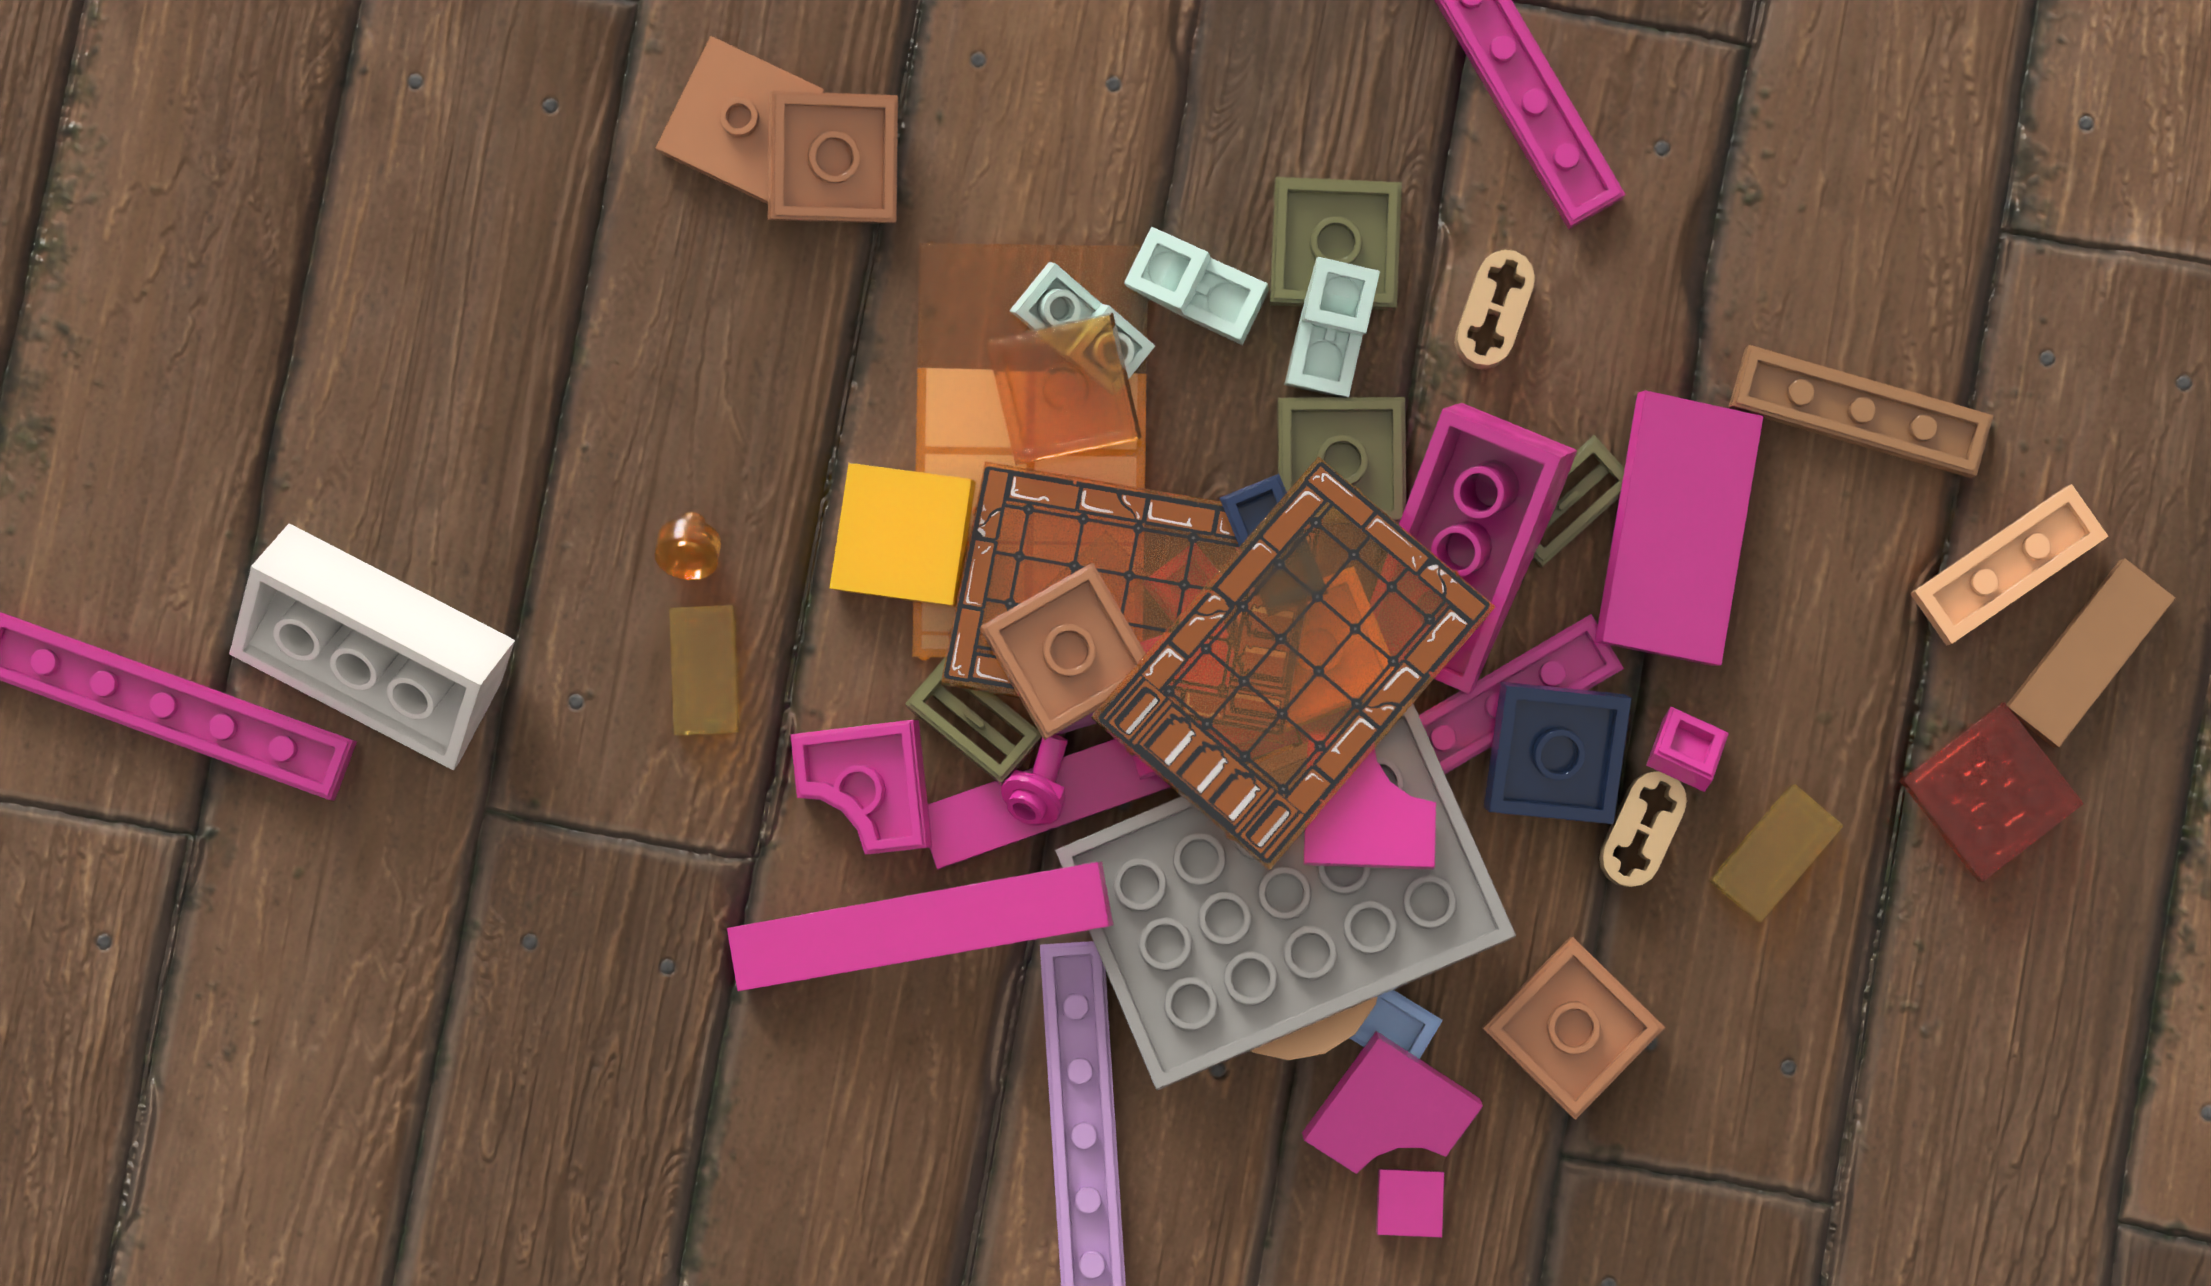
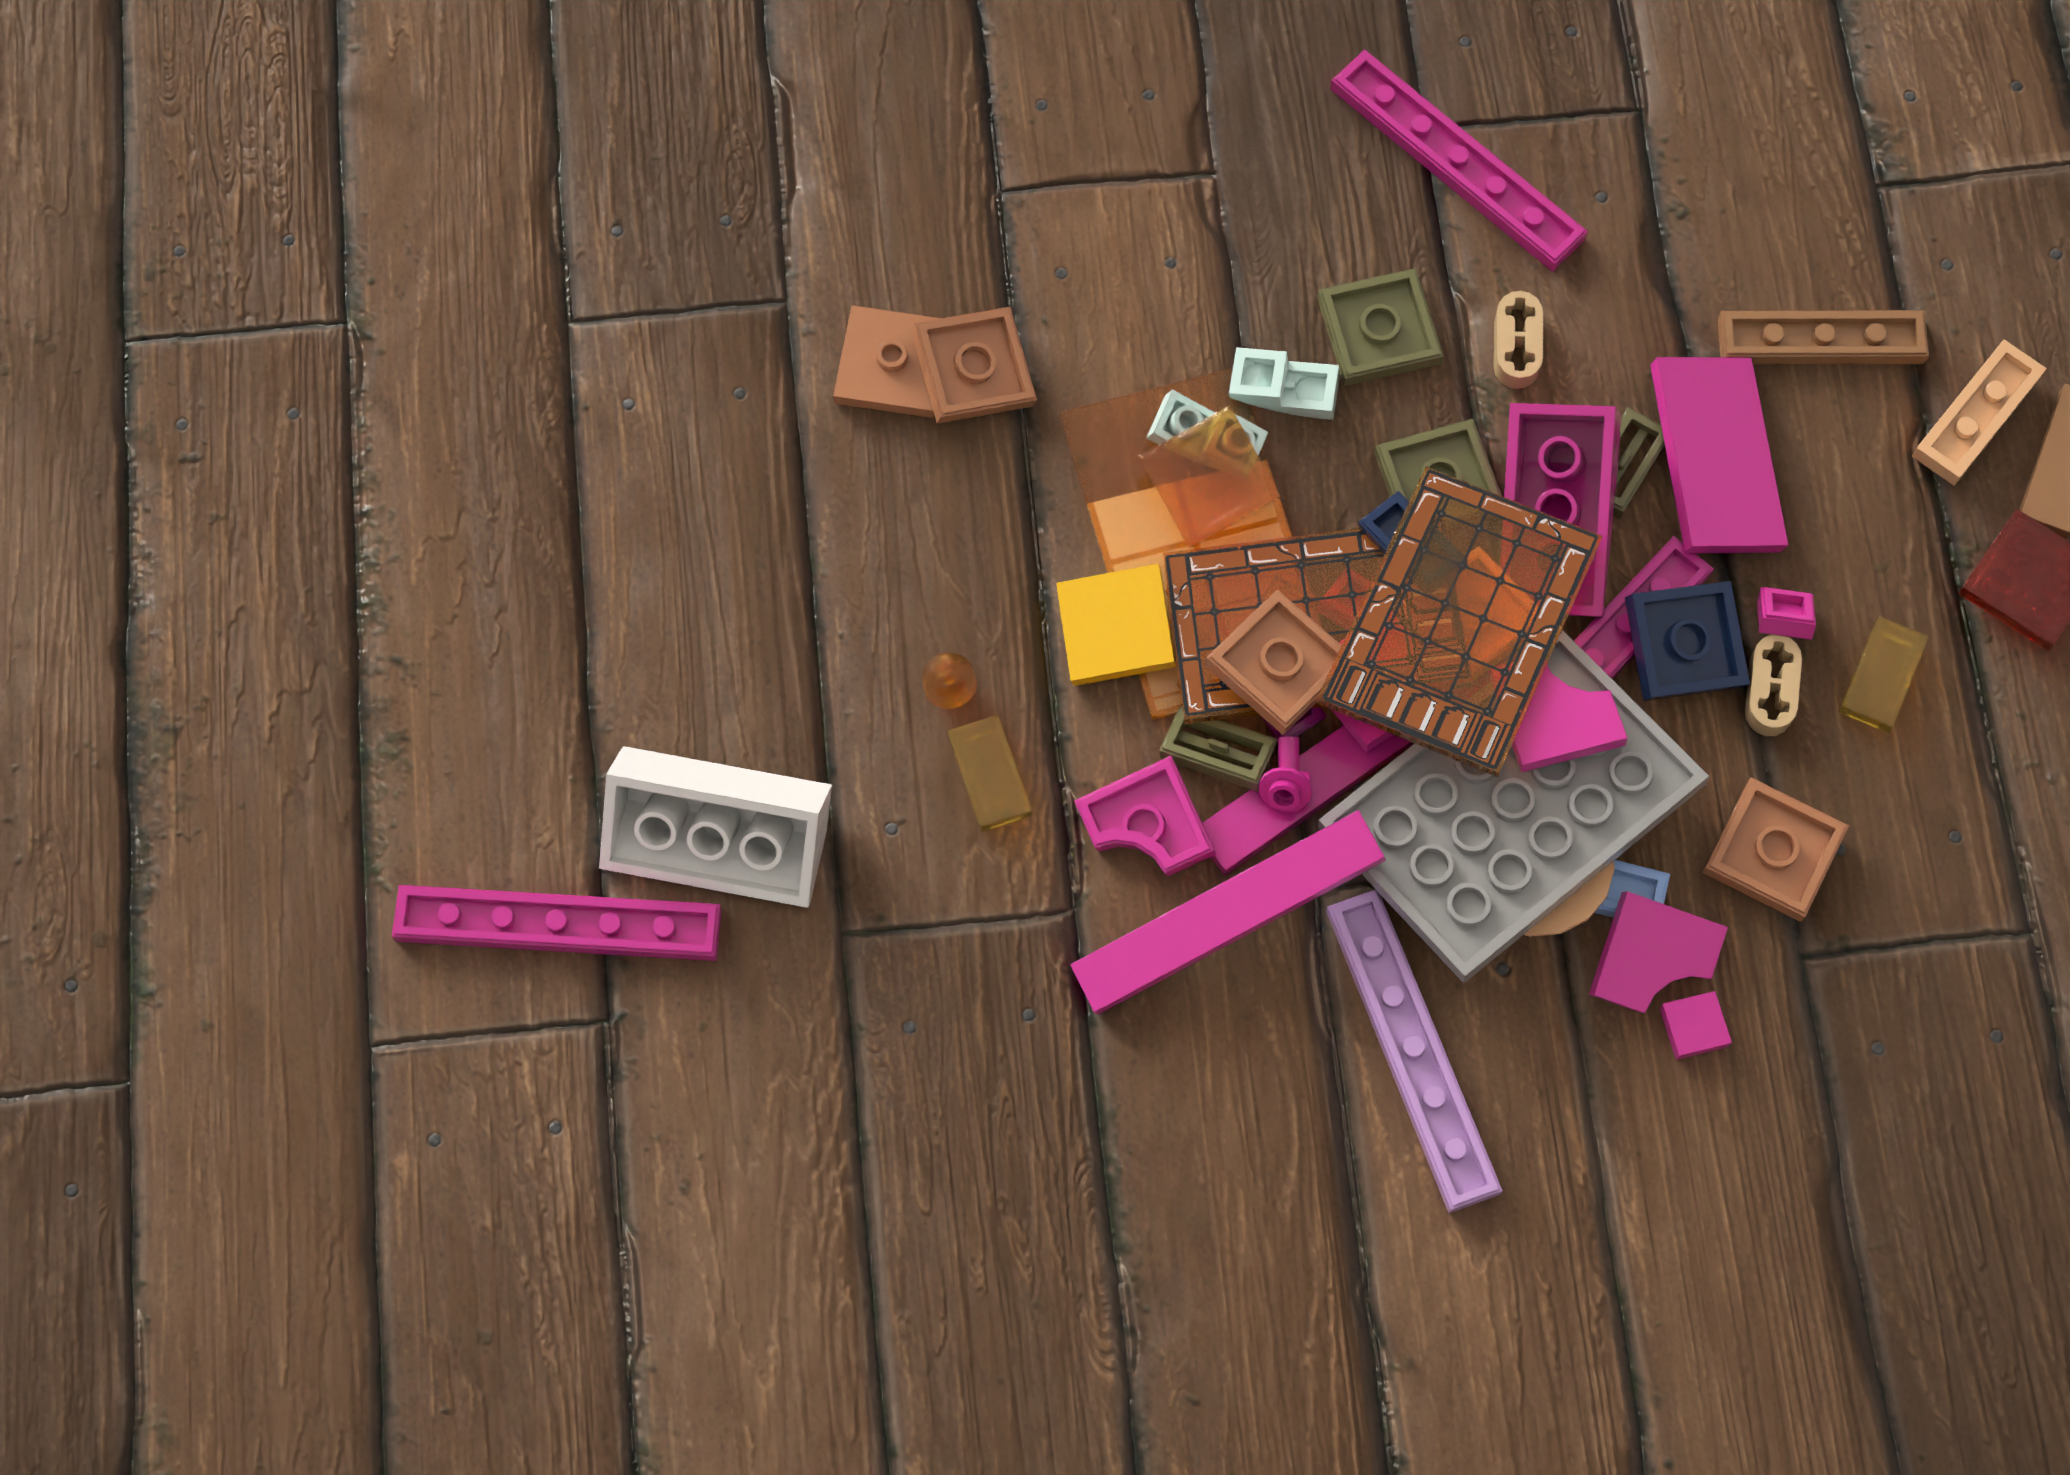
camera: 15 degrees left, 15 degrees down
(1332, 327) = (1399, 382): light aqua slope -> none

